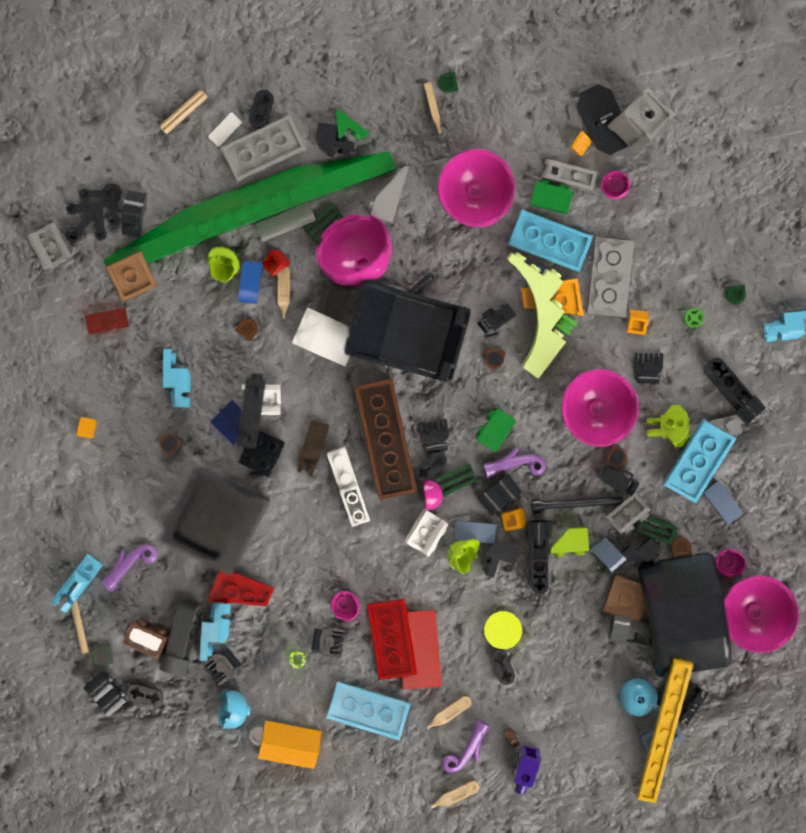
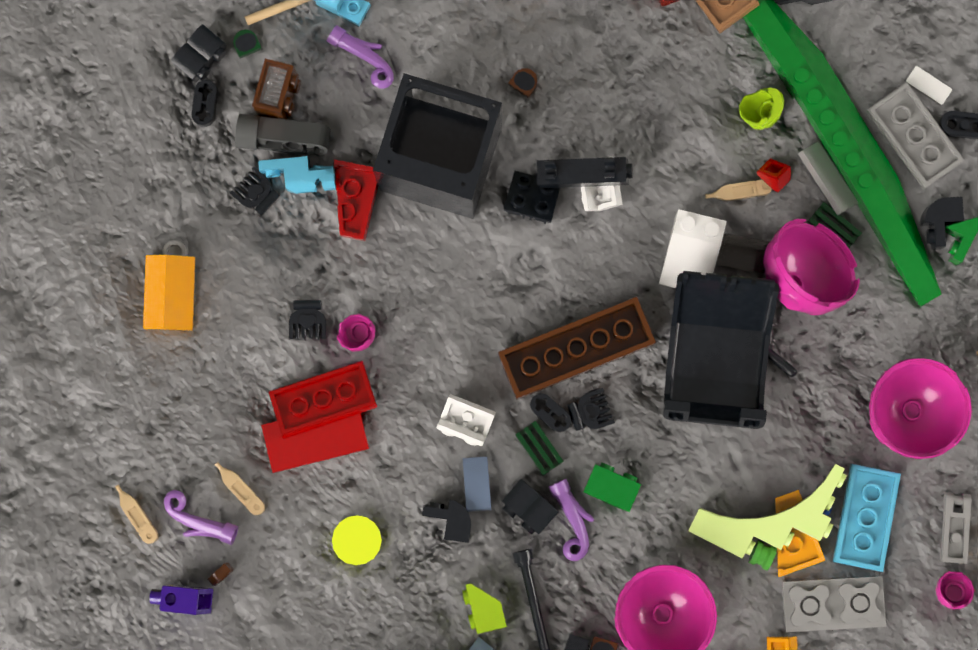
camera: 80 degrees right, 5 degrees down
(176, 379) = (606, 75): medium azure plate -> none
(183, 111) = (942, 30): tan axle -> none
(228, 421) = (564, 146): clear blue piece -> none
(233, 709) = (202, 214): medium azure cylinder -> none
(247, 328) = (685, 154): reddish brown tile -> none
(250, 282) = (744, 146): blue slope -> none
(303, 659) = (278, 292): clear neon green bush -> none
(313, 445) = (552, 260): dark brown hinge -> none
(348, 486) = (507, 312): white slope -> none
(368, 710) = (227, 384): medium azure piece -> none
(388, 199) = (879, 301): light grey slope -> none
(432, 494) = (516, 419): dark pink hair -> none
(462, 554) = (446, 471): lime piece -> none
(494, 358) = (702, 471): tile -> none
(496, 319) = (753, 465): black piece -> none
(507, 665) = (312, 553): black beam -> none
(513, 519) = (500, 531): light orange slope -> none
(538, 534) = (488, 565): black beam -> none
(551, 197) = (923, 509): green brick -> none

